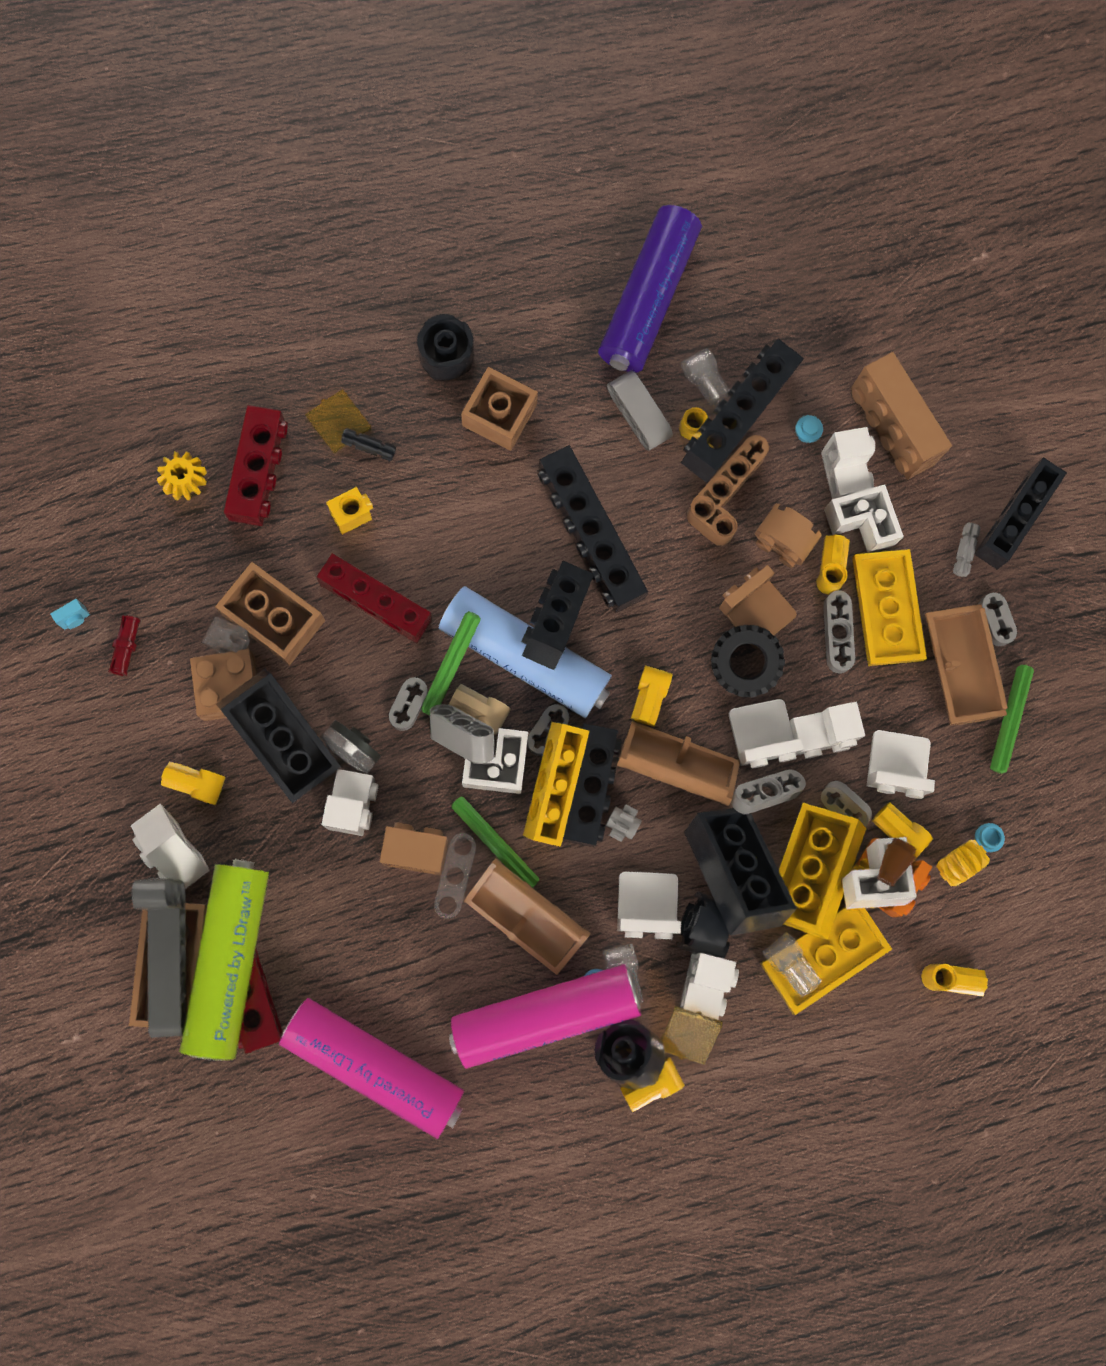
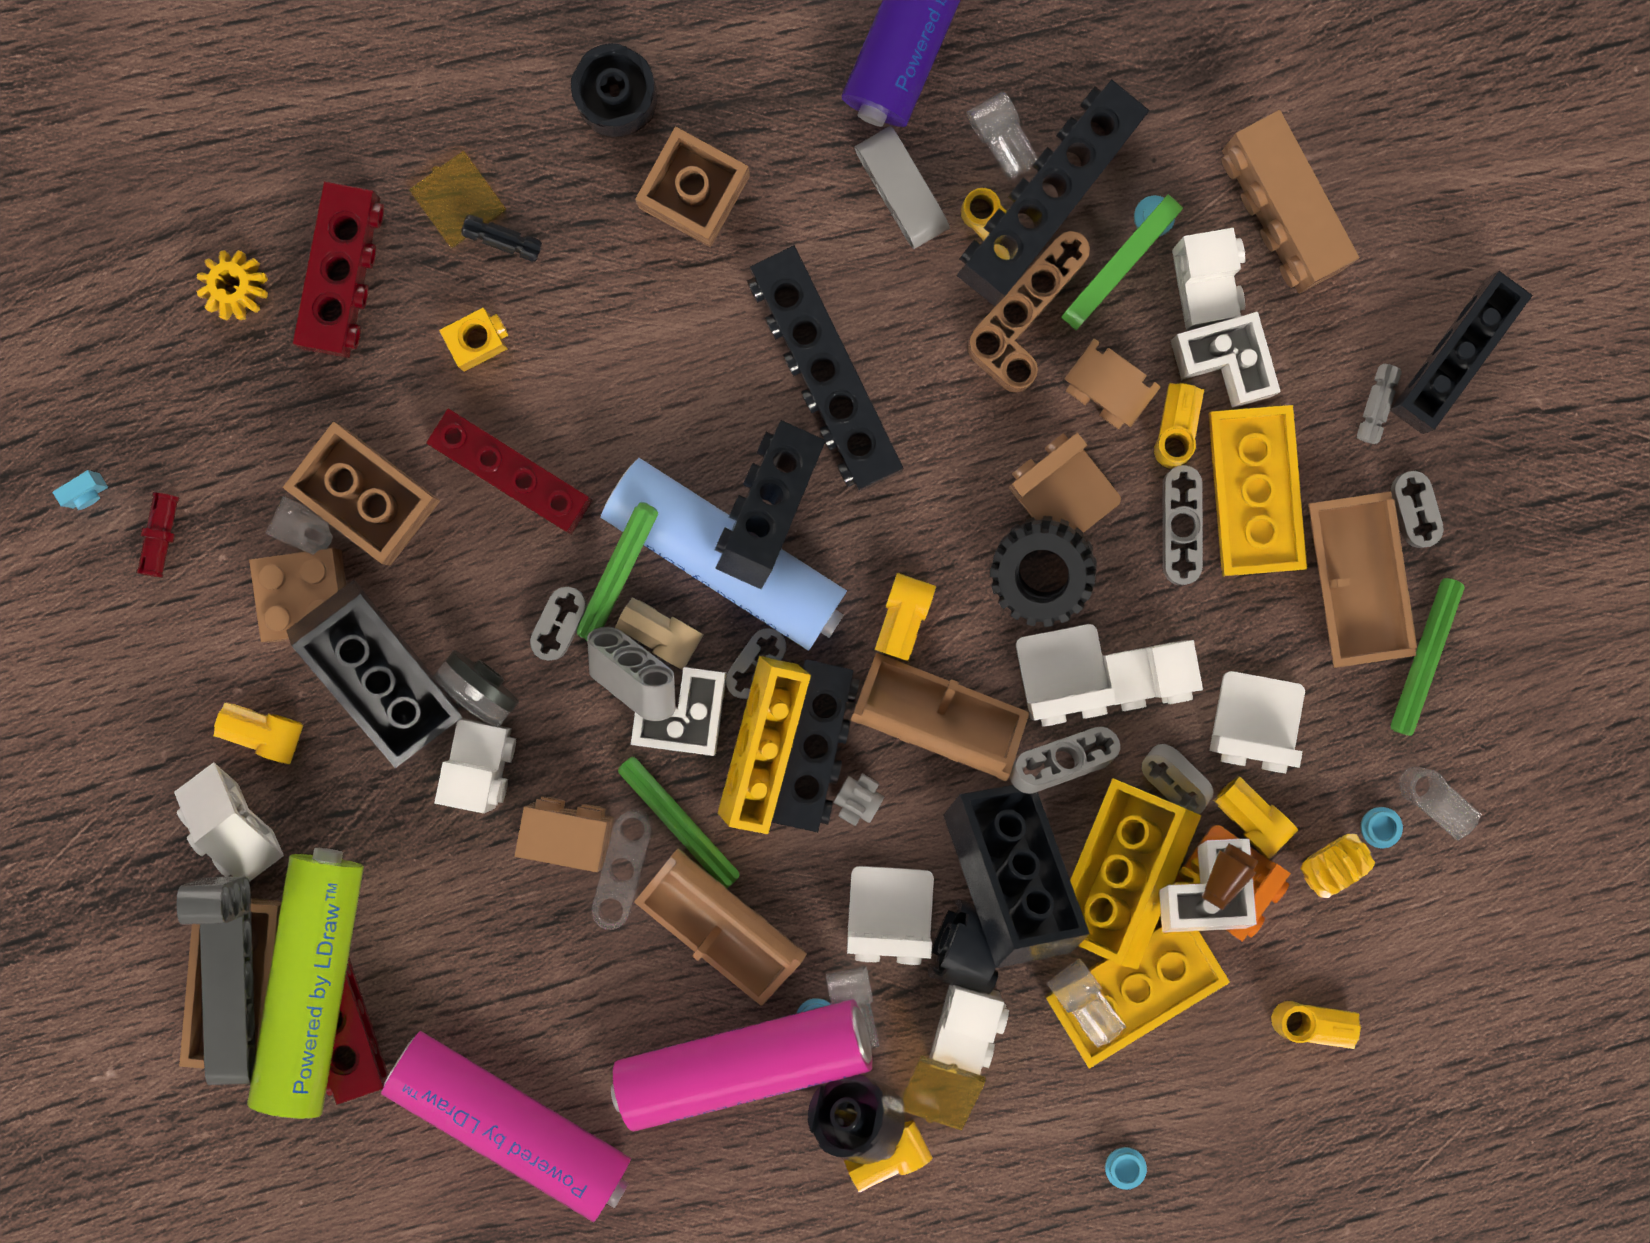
camera: 15 degrees right, 10 degrees up
(790, 456) = (1122, 262): none -> bright green beam
(824, 1089) = (1125, 1168): none -> medium azure plate
(1029, 818) = (1440, 802): none -> clear piece

